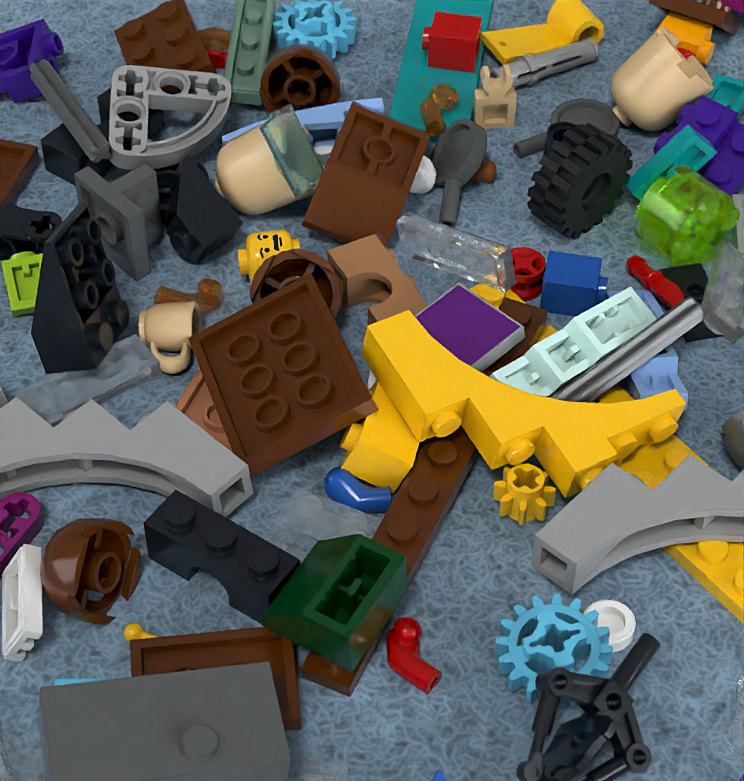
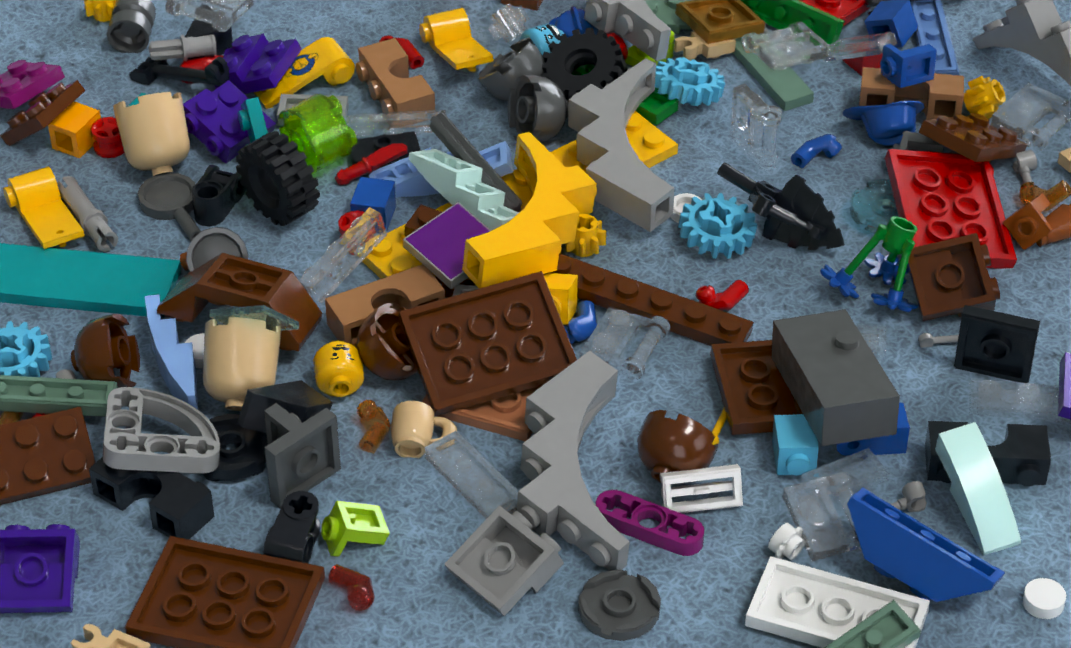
camera: 90 degrees left, 5 degrees down
(70, 111) = (146, 494): dark grey axle -> none
(77, 297) = (417, 451): black slope -> none
(192, 537) = (667, 365): black arch -> none
(340, 598) = (705, 301): dark green slope -> none
(439, 98) = (149, 272): clear orange arm -> none
(453, 41) = (66, 253): red brick -> none
(496, 102) = (146, 239): tan plate -> none

